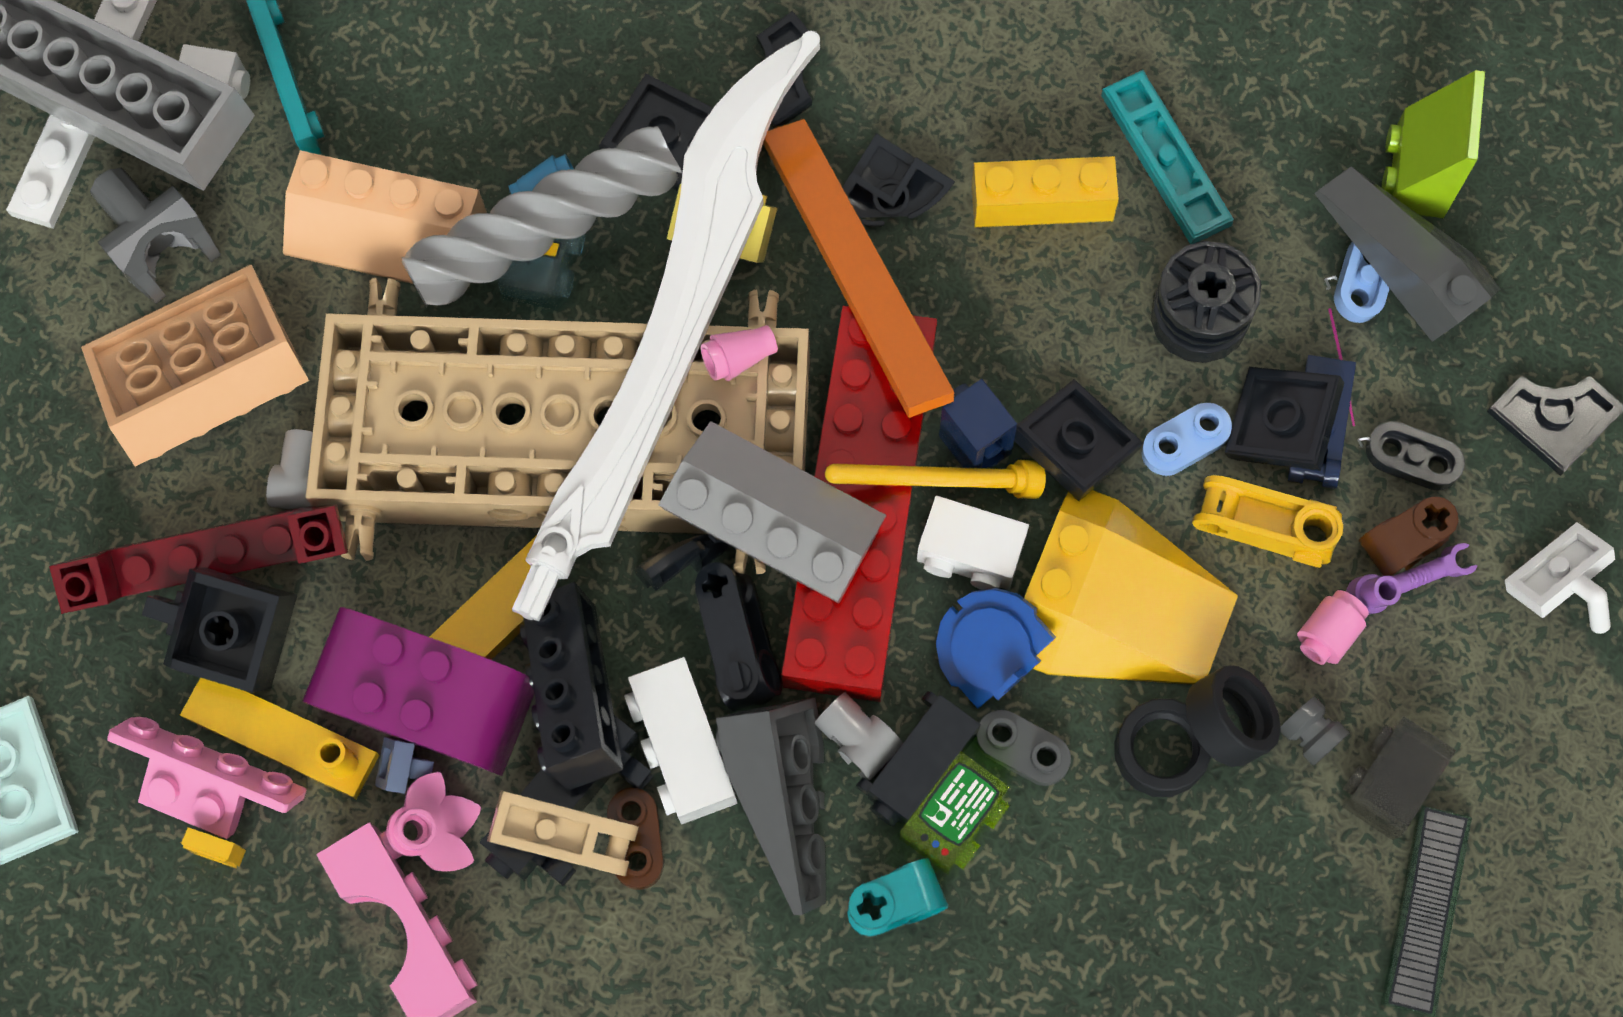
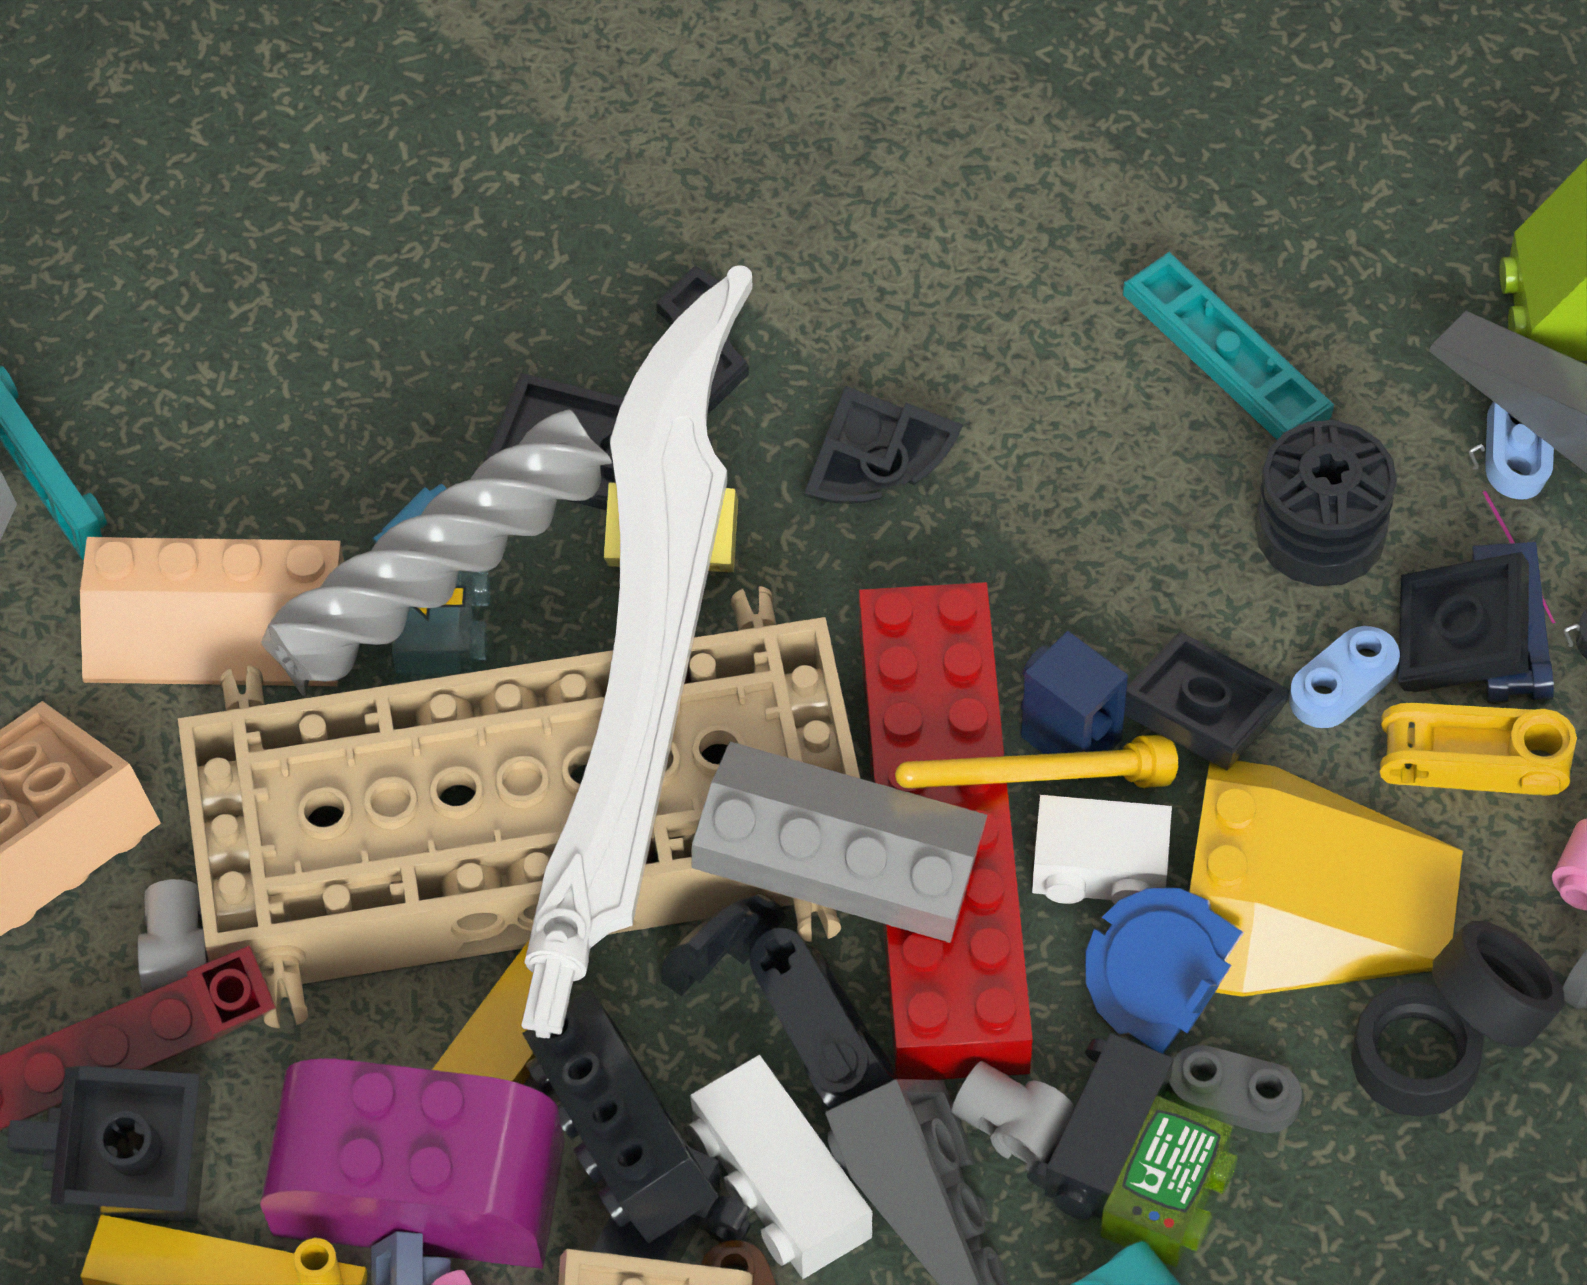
camera: 15 degrees left, 15 degrees down
(735, 352) = (740, 656): bright pink cone -> none
(858, 270) = (870, 542): orange tile -> none
(1044, 191) = (1082, 415): yellow brick -> none

